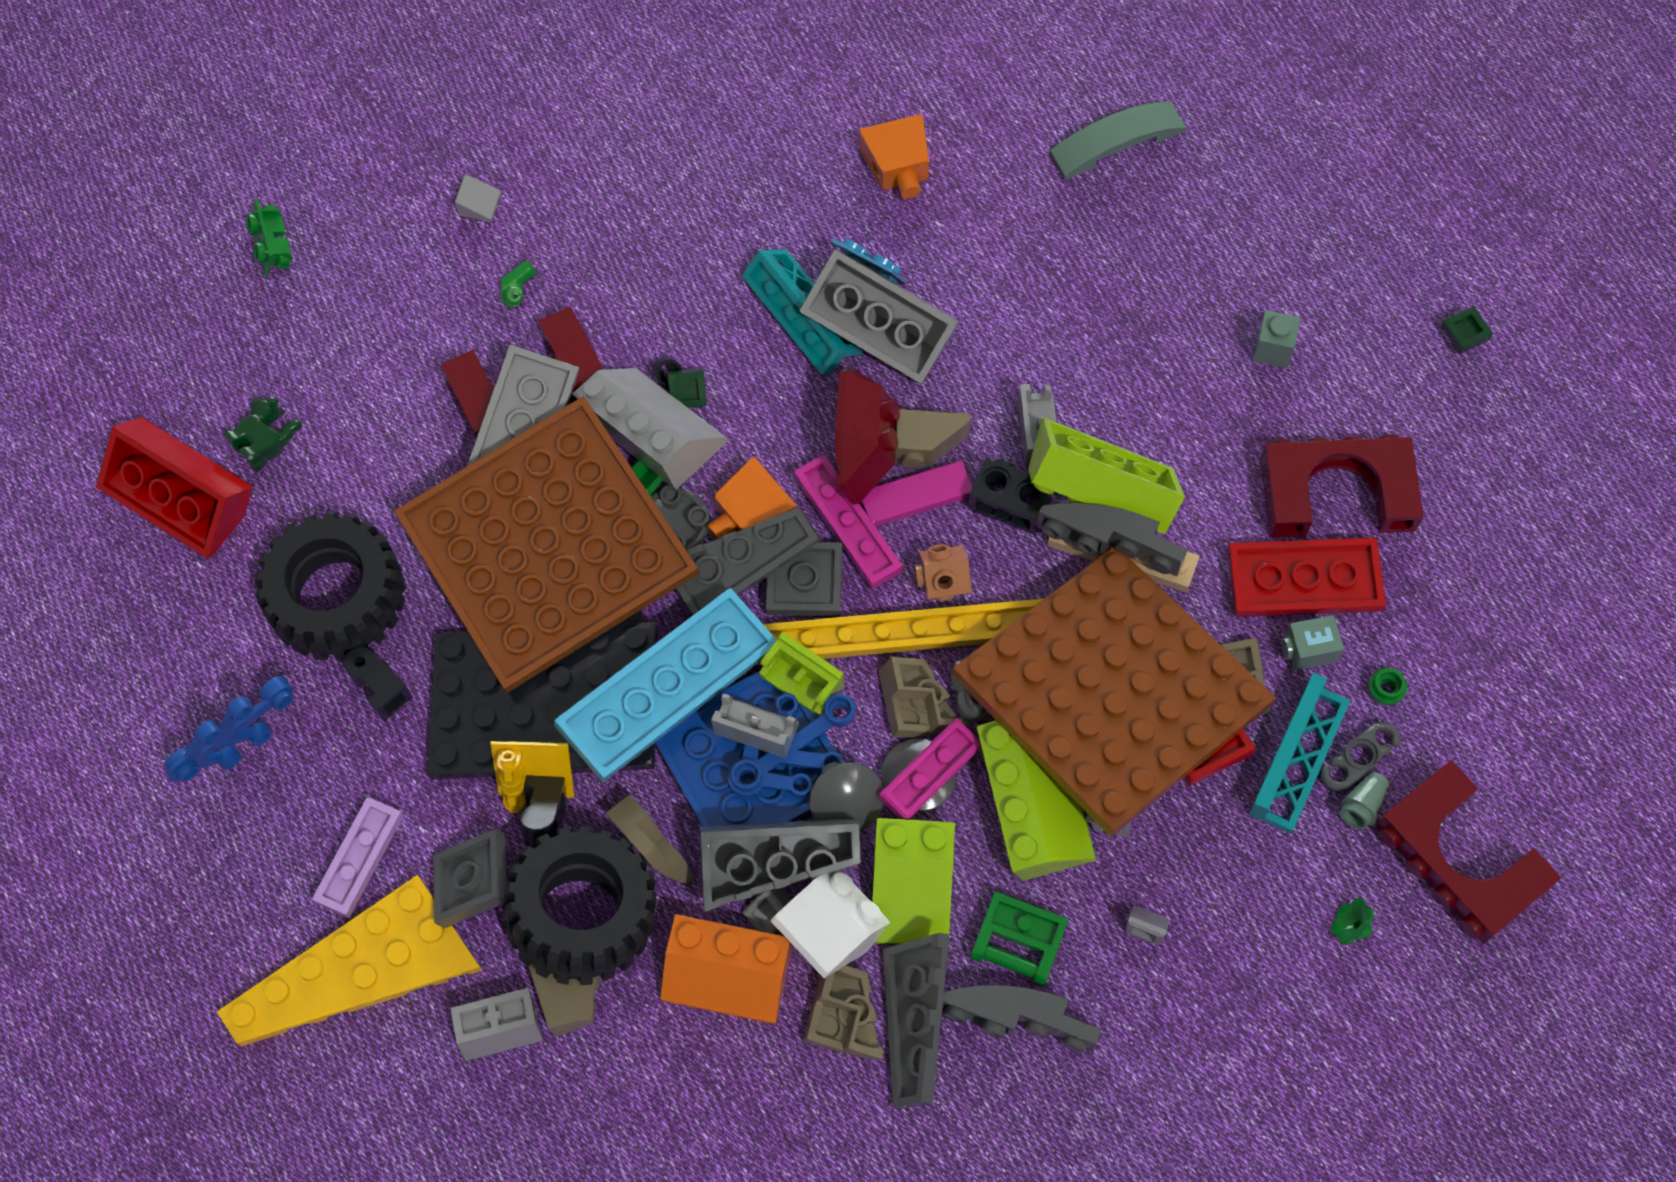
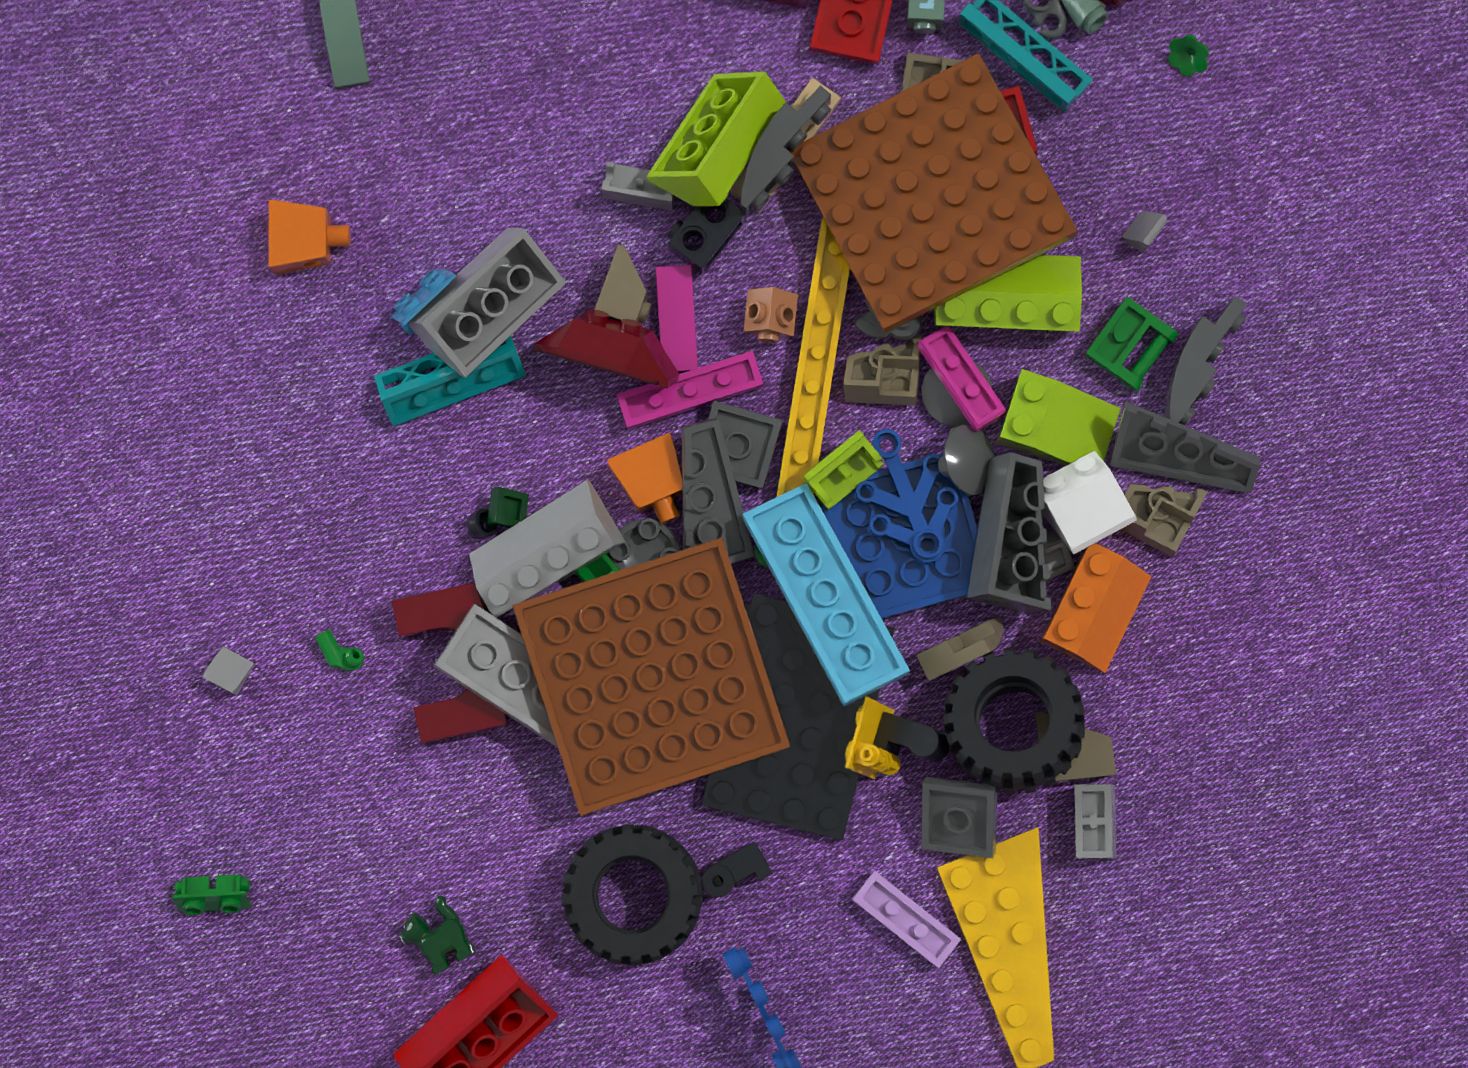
camera: 75 degrees left, 15 degrees up
(754, 726) = (885, 522): light grey hinge -> none

